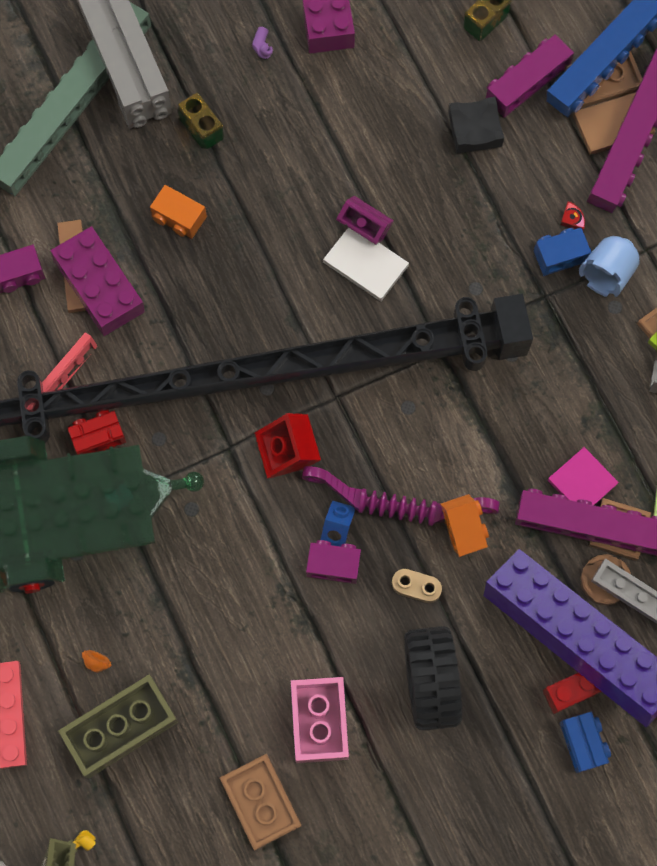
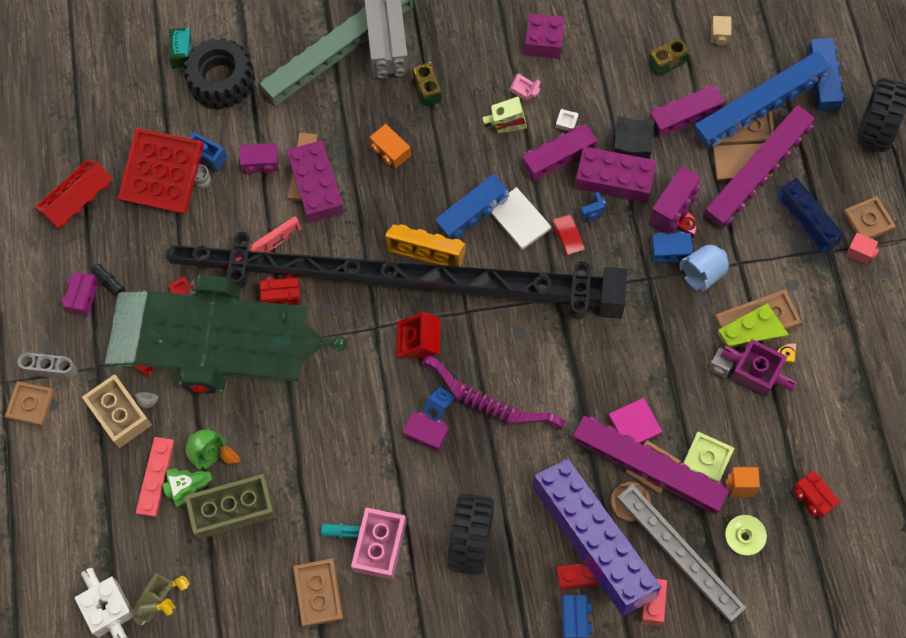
camera: 20 degrees right, 5 degrees down
(50, 714) = (184, 483): none -> bright green rock
(61, 661) = (204, 448): none -> bright green cylinder
(259, 44) = (488, 39): medium lavender arm -> none
(261, 328) = (425, 246): none -> light orange slope
(266, 716) = (340, 530): none -> teal axle
(306, 264) = (472, 208): none -> blue brick
(313, 137) = (506, 116): none -> yellowish green torso
(323, 95) = (525, 88): none -> bright pink bracket
(365, 220) = (527, 186): magenta brick -> none
(387, 124) = (566, 120): none -> white plate
(391, 165) = (558, 152): none -> magenta brick
(416, 587) = (483, 466): tan plate -> none
(432, 265) = (568, 233): none -> red slope
(455, 229) = (593, 211): none -> blue bracket
(464, 525) = (532, 430): orange brick -> none
(468, 177) = (615, 174): none -> magenta brick
(552, 192) = (675, 201): none -> magenta brick

